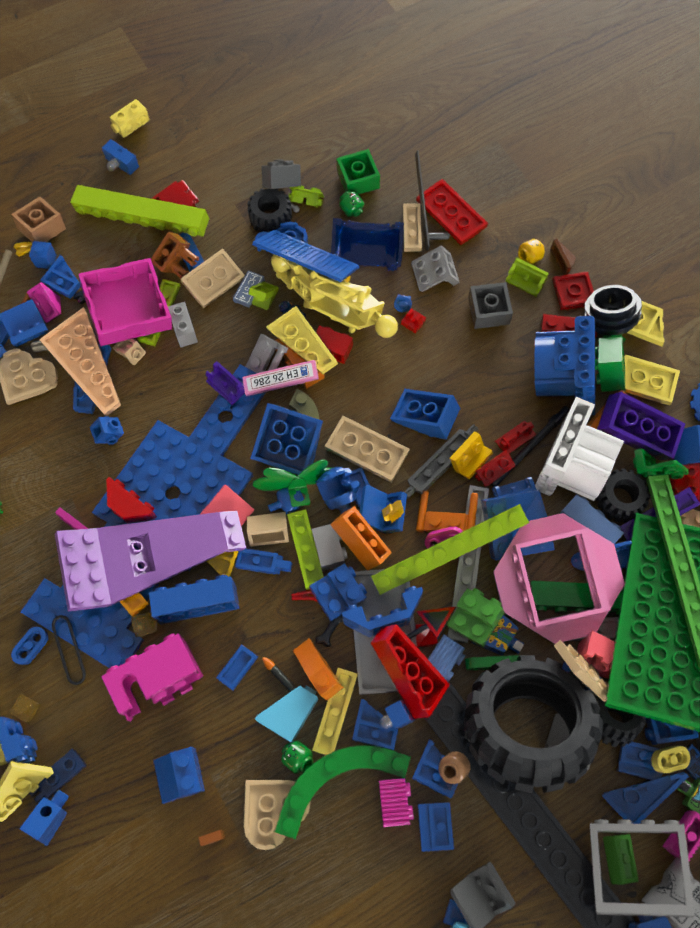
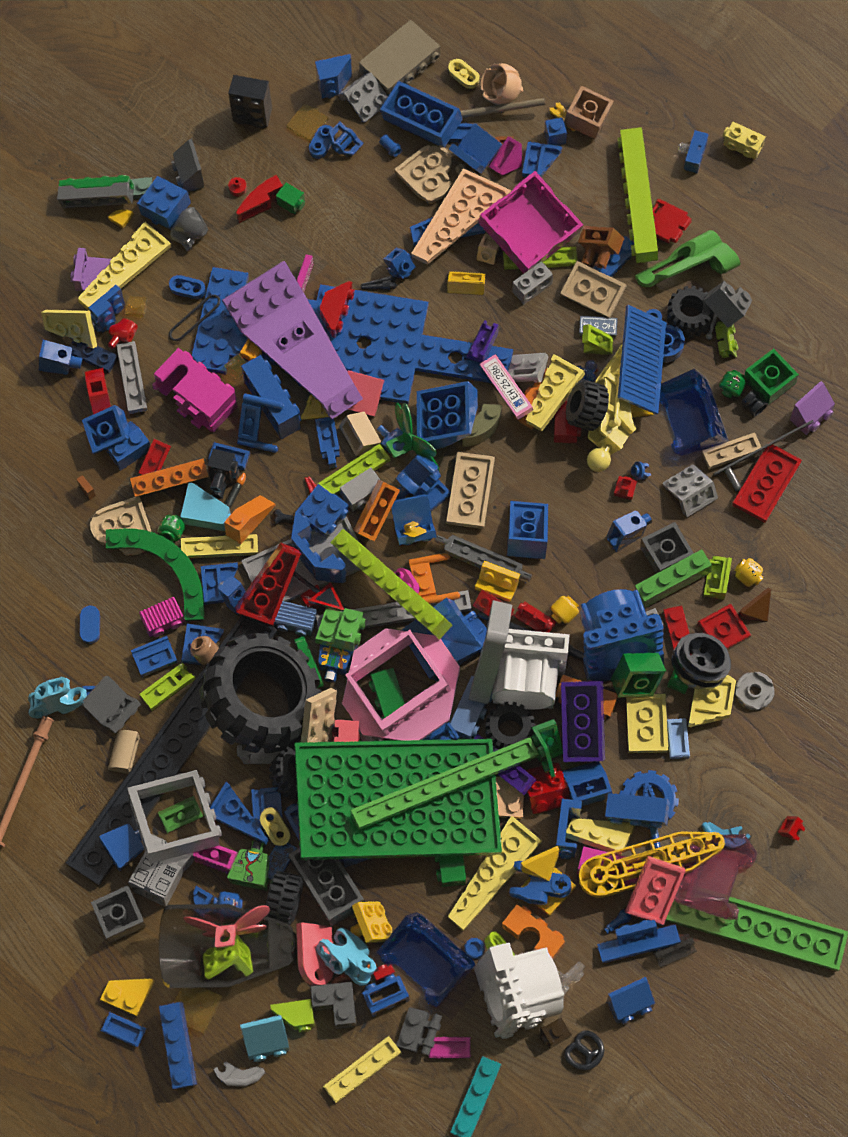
camera: 70 degrees right, 0 degrees up
(47, 732) = (122, 331): none -> red piece
(104, 741) = (132, 377): none -> light grey plate
(108, 785) = (97, 390): none -> red slope
(118, 454) = (384, 283): none -> black piece
(153, 381) = (466, 283): none -> yellow slope
(157, 790) = (106, 428): none -> blue slope
(211, 748) = (155, 457): none -> red plate
(212, 628) = (250, 421): none -> blue plate
(217, 184) = (695, 251): none -> bright green panel
(239, 740) = (168, 477): none -> orange piece
(254, 678) = (222, 471): none -> black brick
(342, 304) = (587, 405): none -> black tyre
(373, 888) = (90, 624): none -> blue tile
(375, 195) = (754, 403): none -> black wheel
(399, 154) = (813, 406): none -> medium lavender slope
(458, 323) = (627, 529): none -> blue torso
(474, 825) = (167, 686): none -> lime plate
(517, 408) = (564, 609): none -> yellow head
(522, 321) = (673, 578): none -> bright green brick
(536, 901) = (124, 751): none -> tan brick
(574, 468) = (491, 652): none -> light grey beam
(645, 280) = (751, 701): none -> light grey tile
(667, 359) = (678, 738): none -> light blue tile

